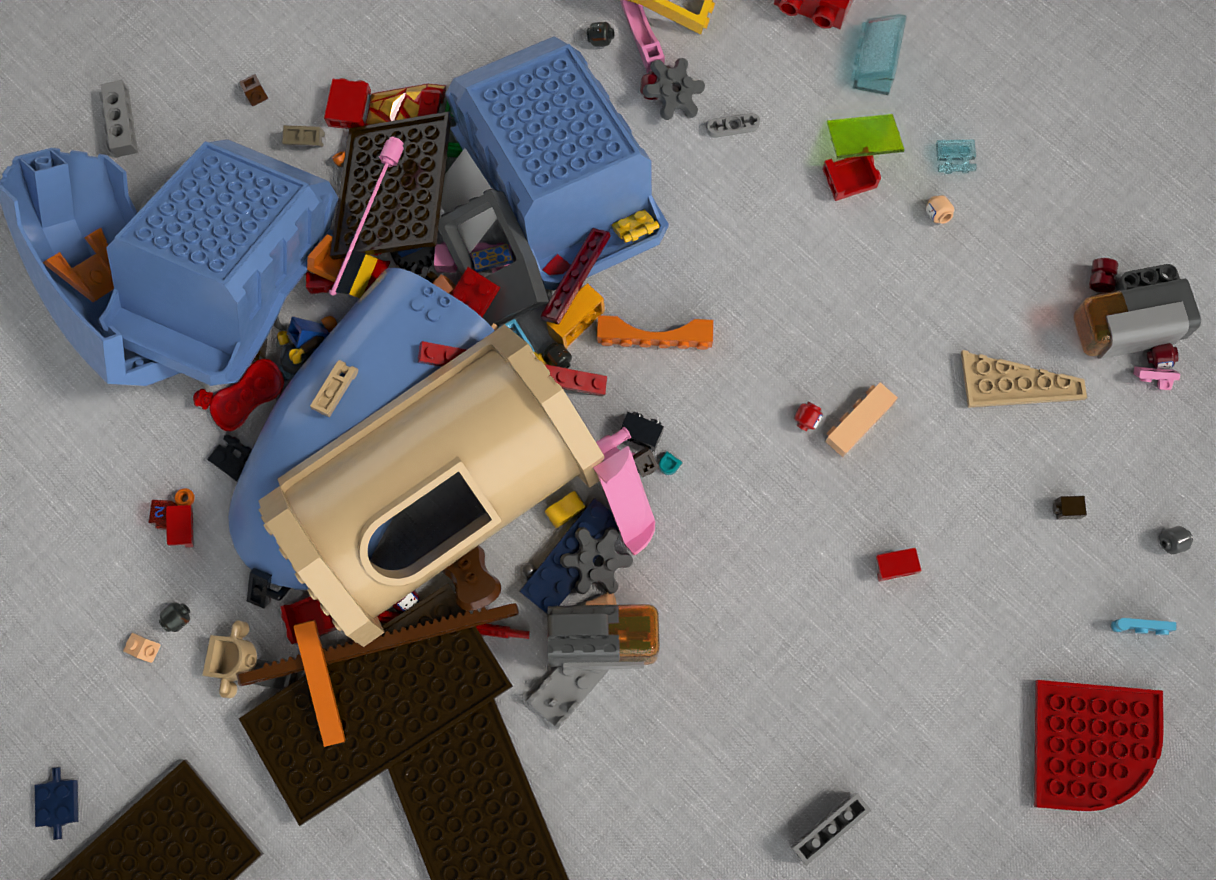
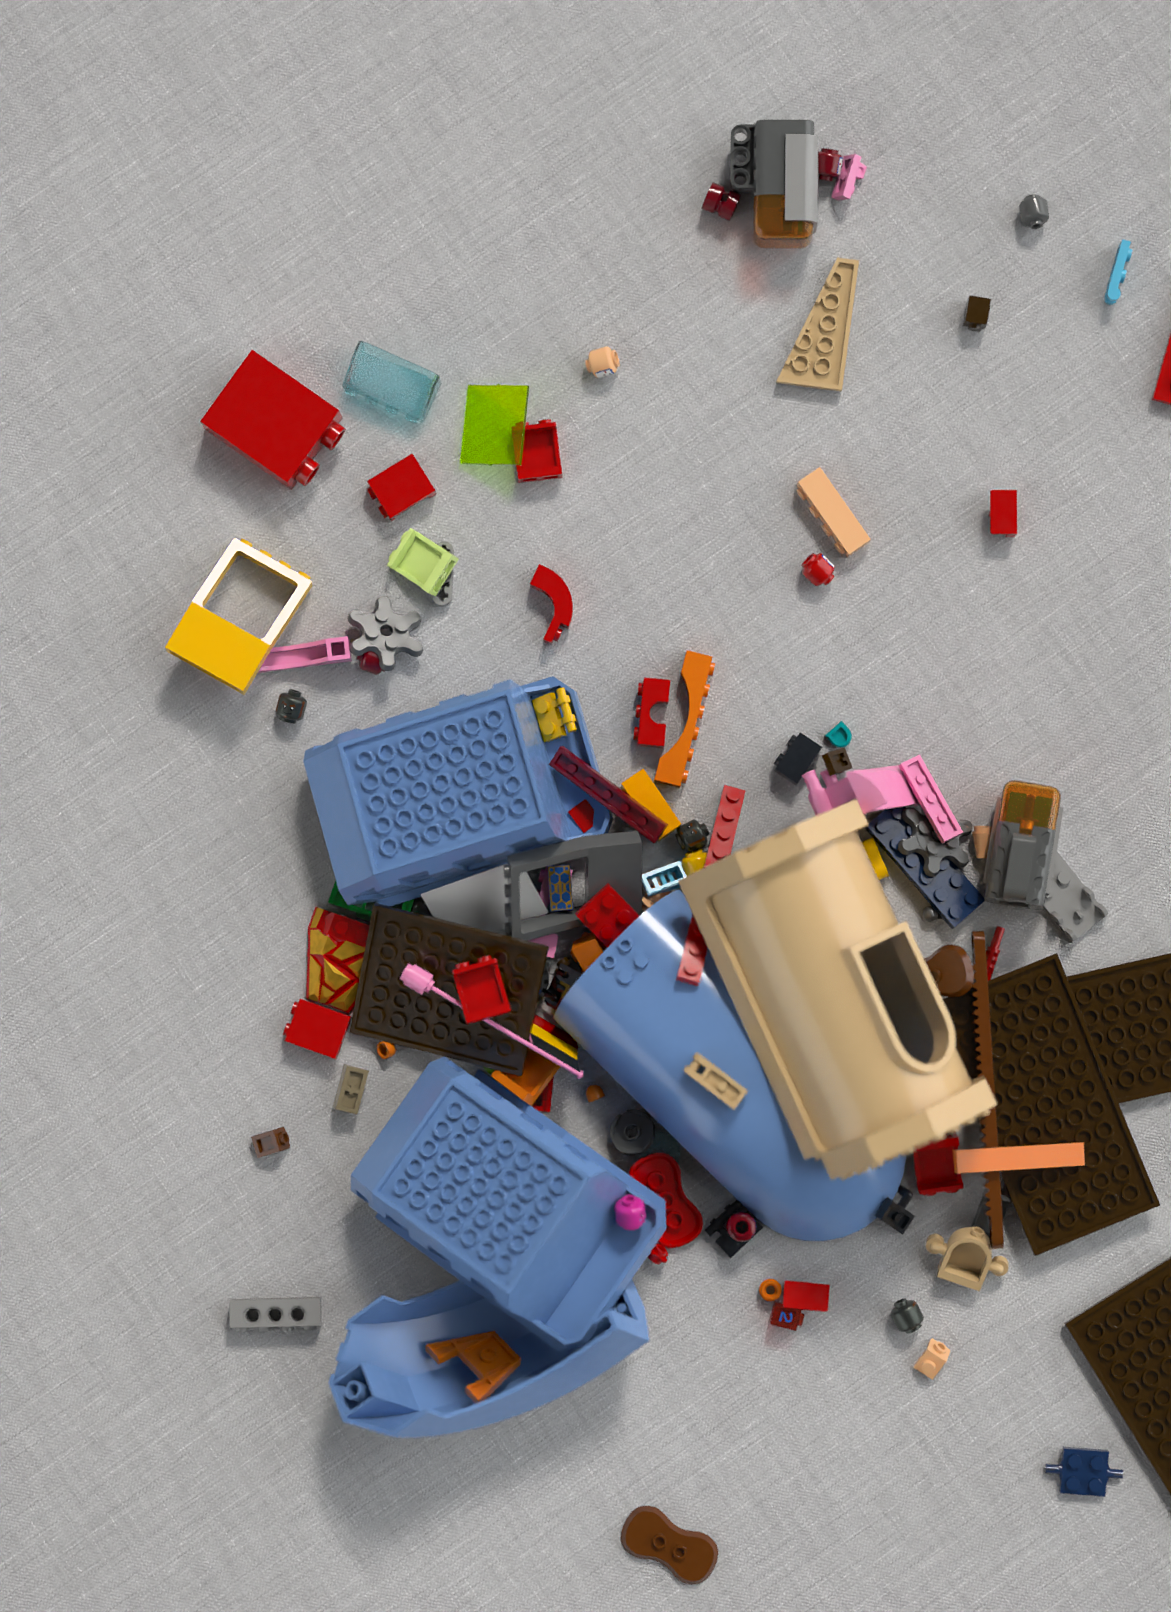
camera: 85 degrees left, 10 degrees up
(217, 349) = (630, 1212): none -> dark pink head
(230, 457) = (743, 1234): none -> dark red head
(304, 335) = (610, 1118): torso -> none
(389, 199) = (481, 990): none -> red panel
(628, 547) = (930, 799): none -> bright pink plate
(671, 302) = (653, 692): none -> red arch
(731, 217) = (555, 588): none -> red arch
(739, 104) = (422, 561): none -> yellowish green panel
(796, 77) = (400, 487): none -> red panel
(956, 150) = (532, 325): clear light blue plate -> none

